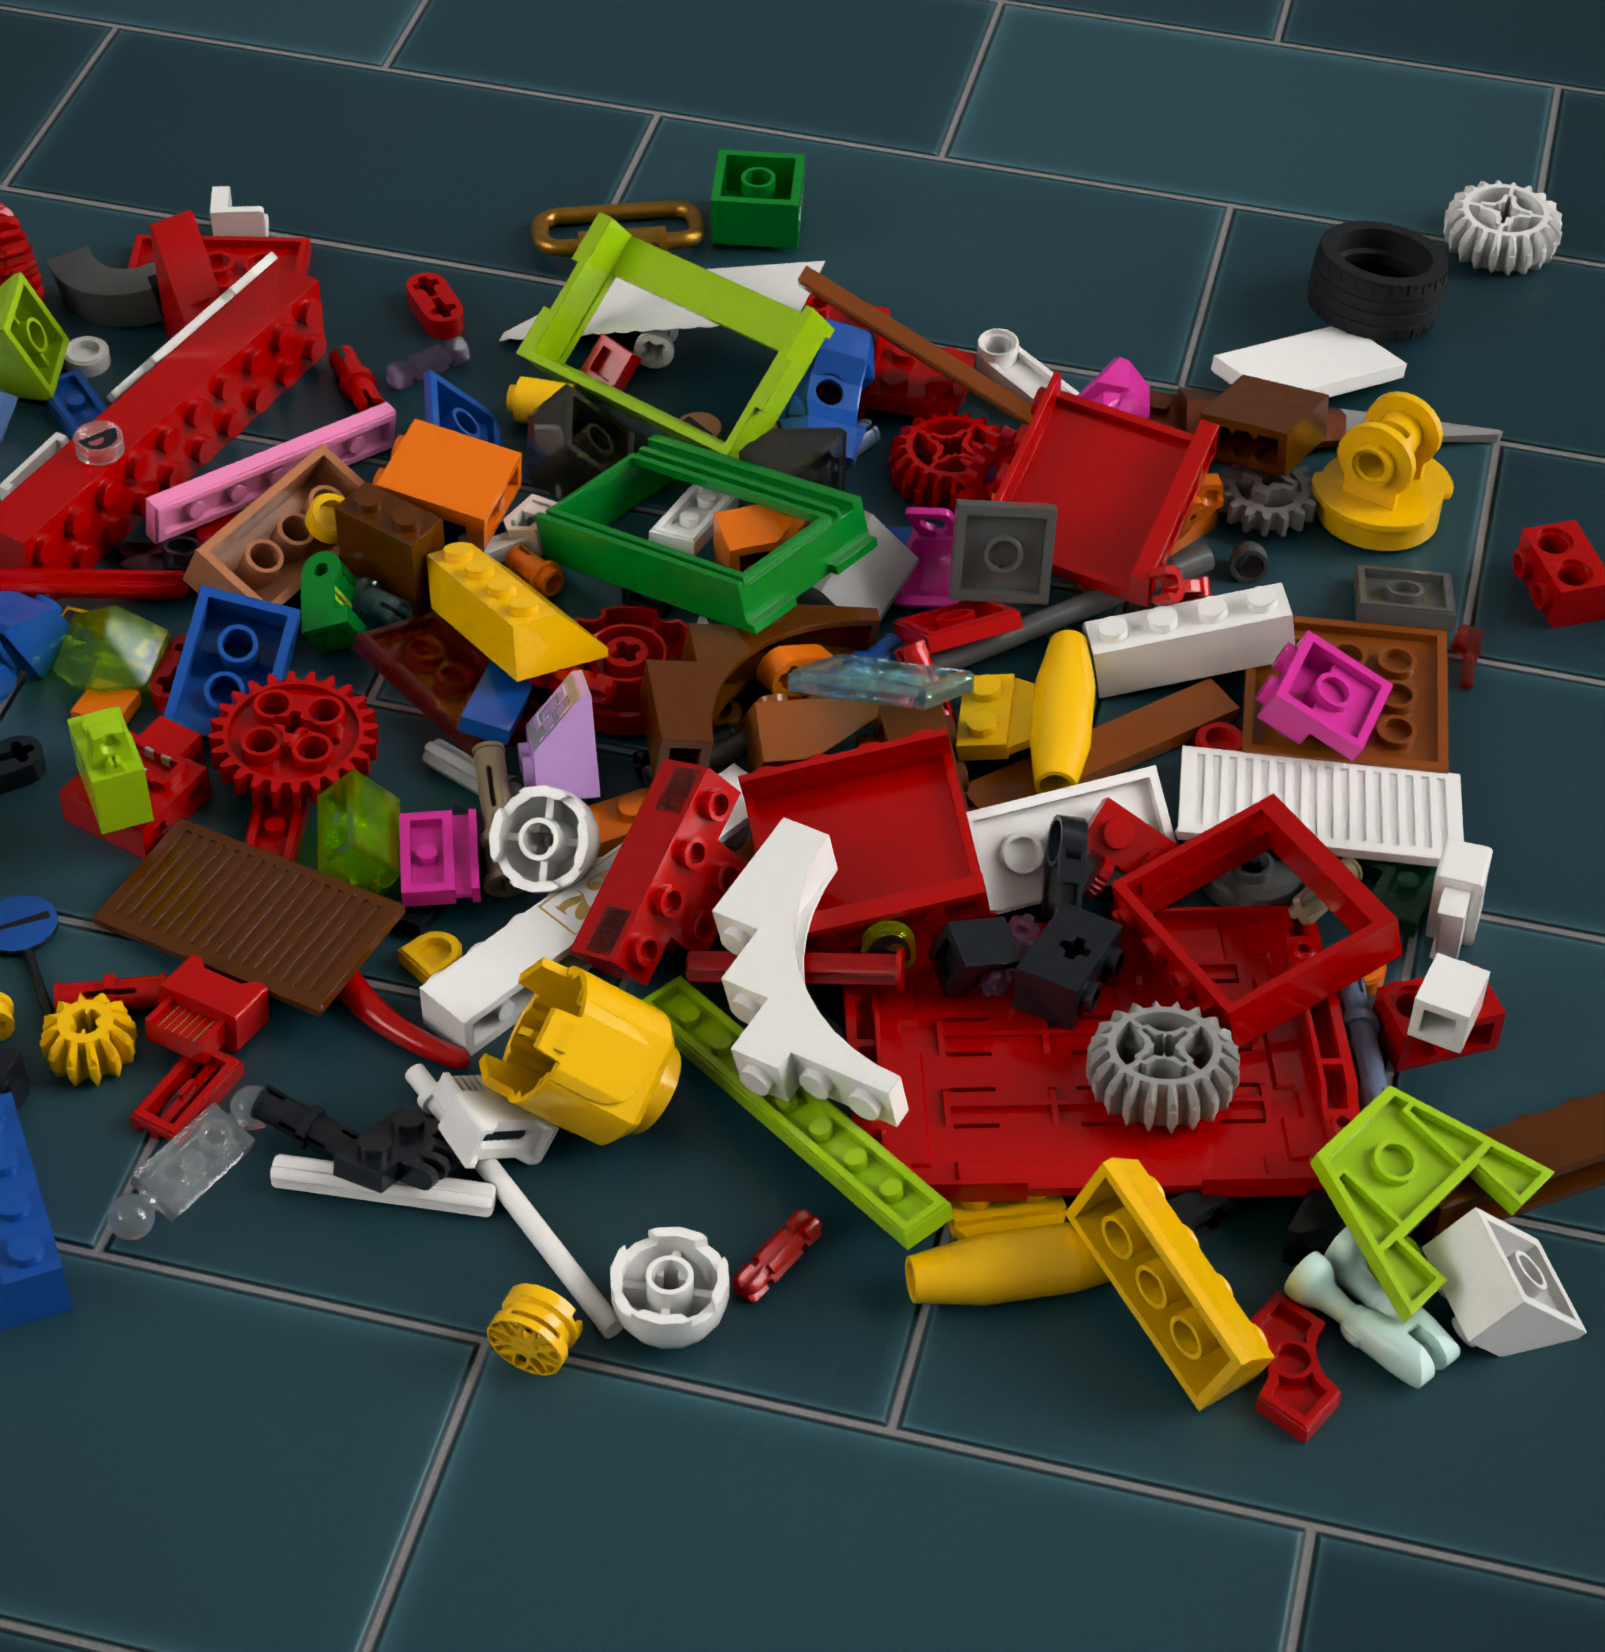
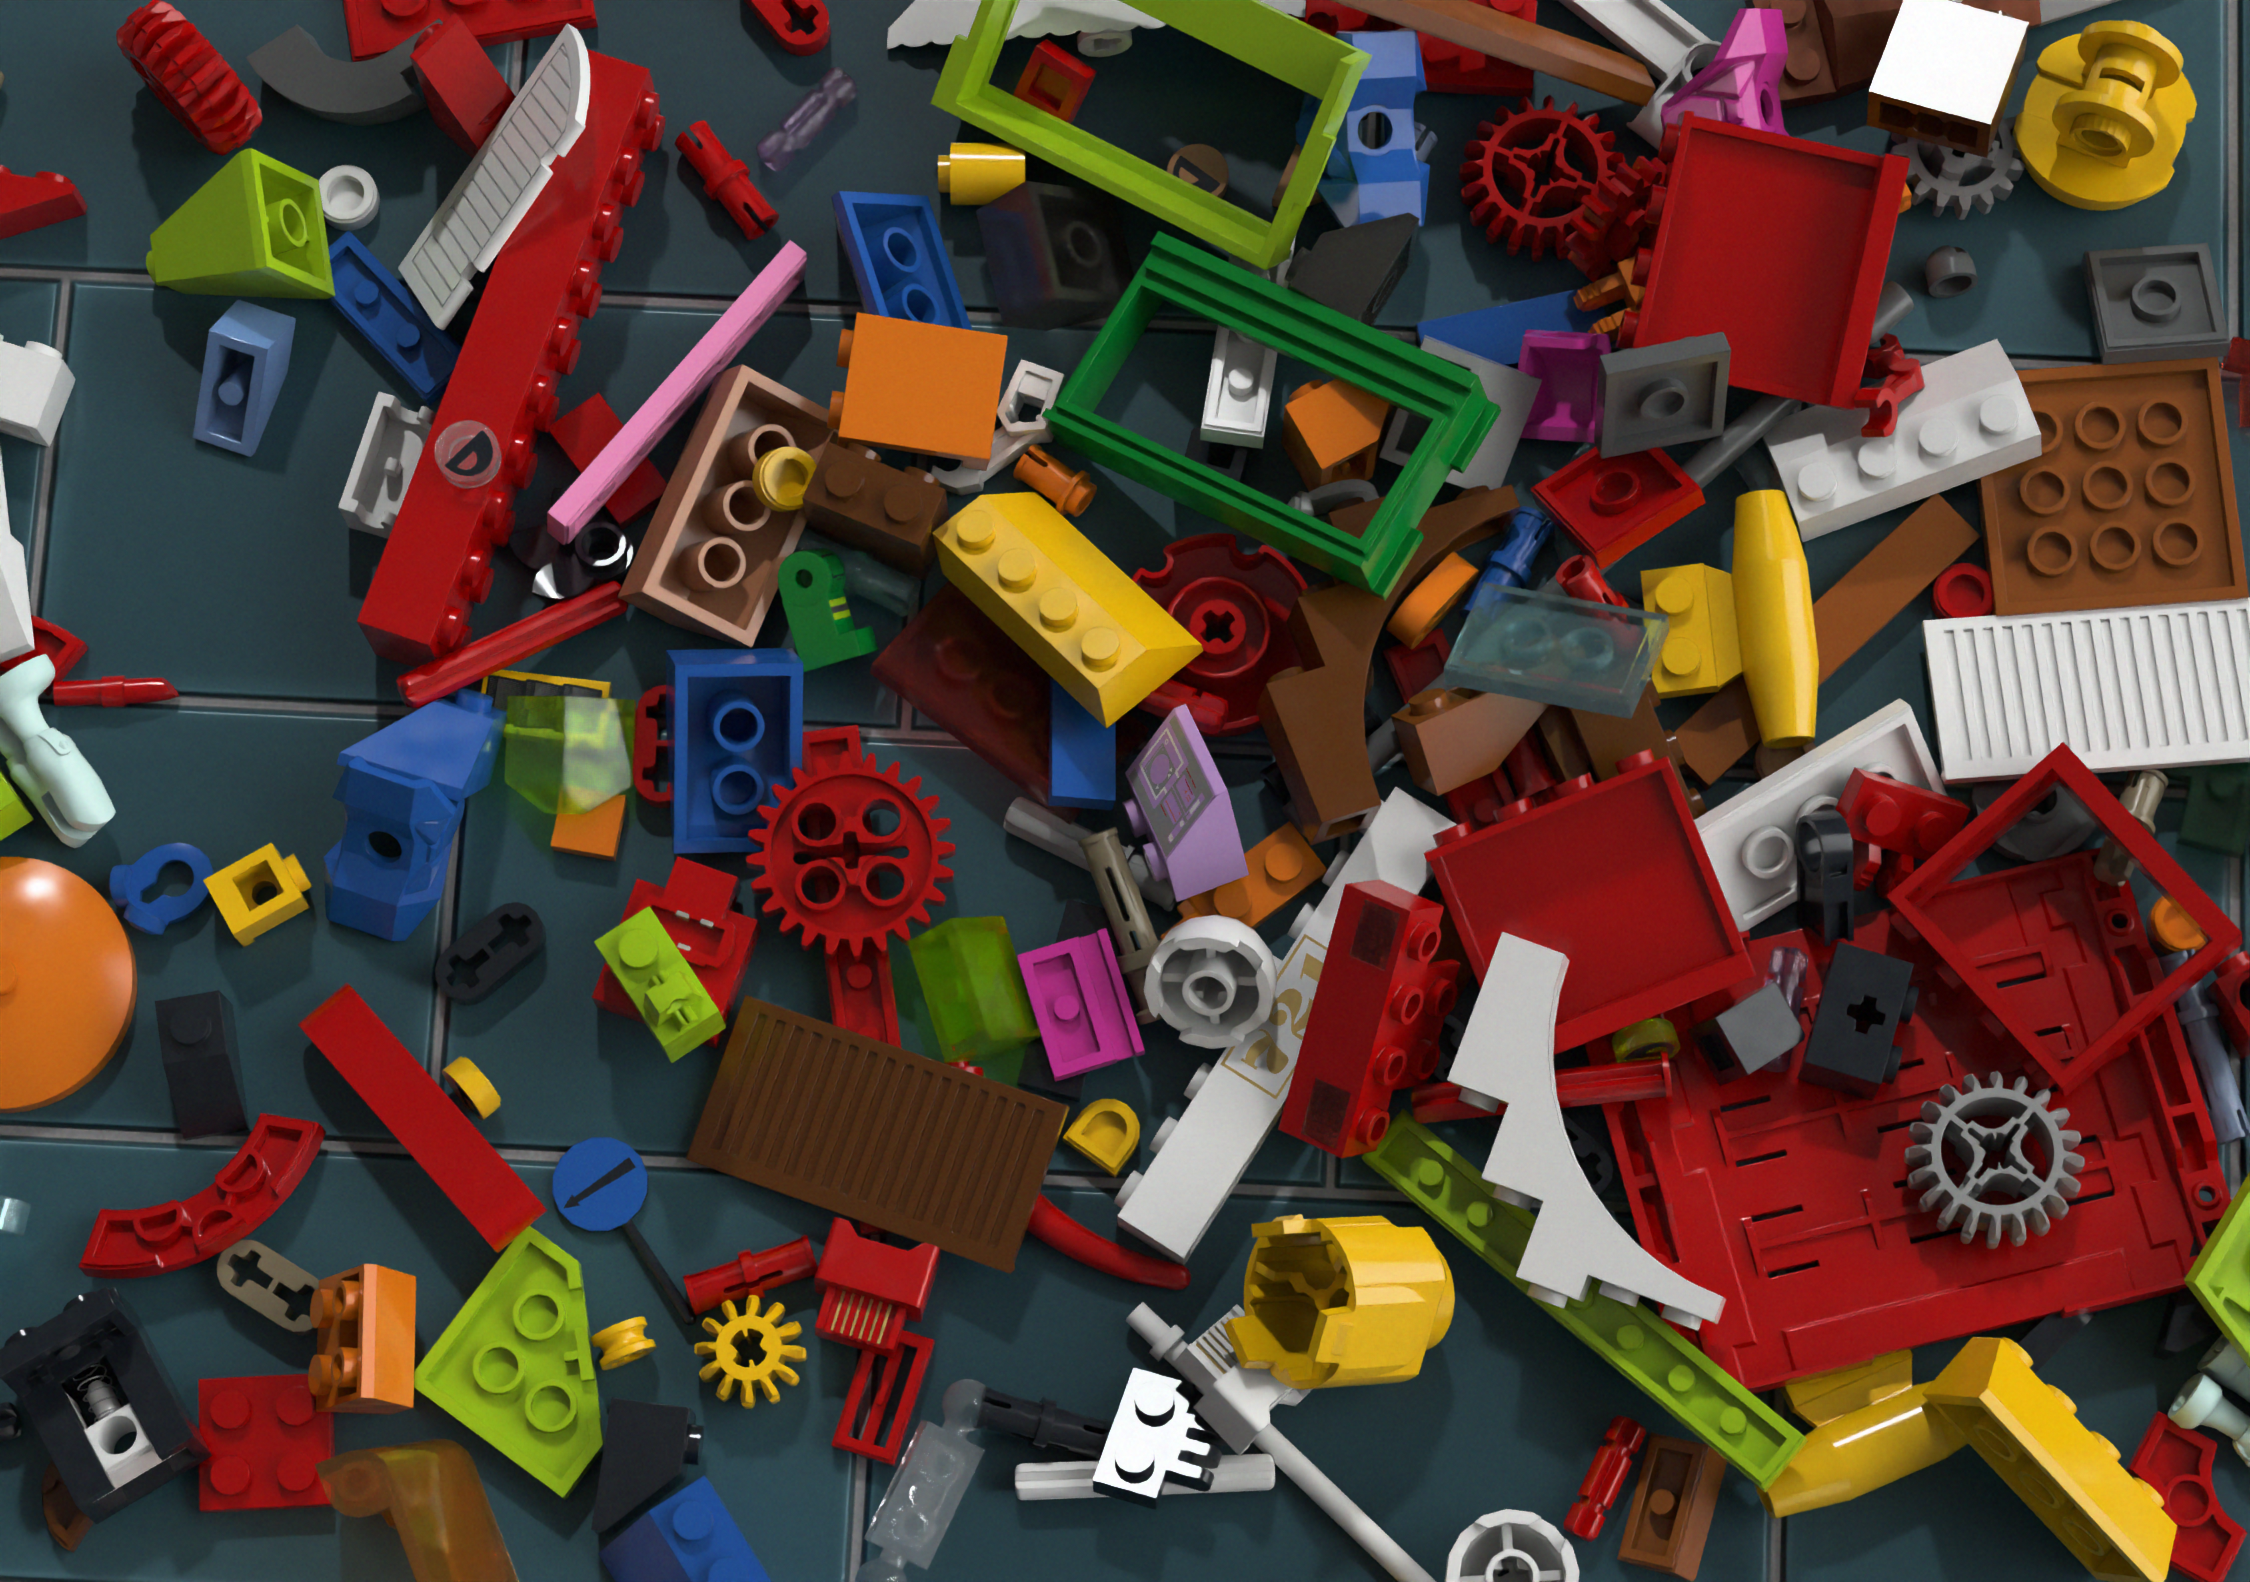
camera: 10 degrees left, 30 degrees up
(833, 1290) = (1672, 1507): none -> dark orange slope
(1323, 696) = (2088, 530): dark pink plate -> none

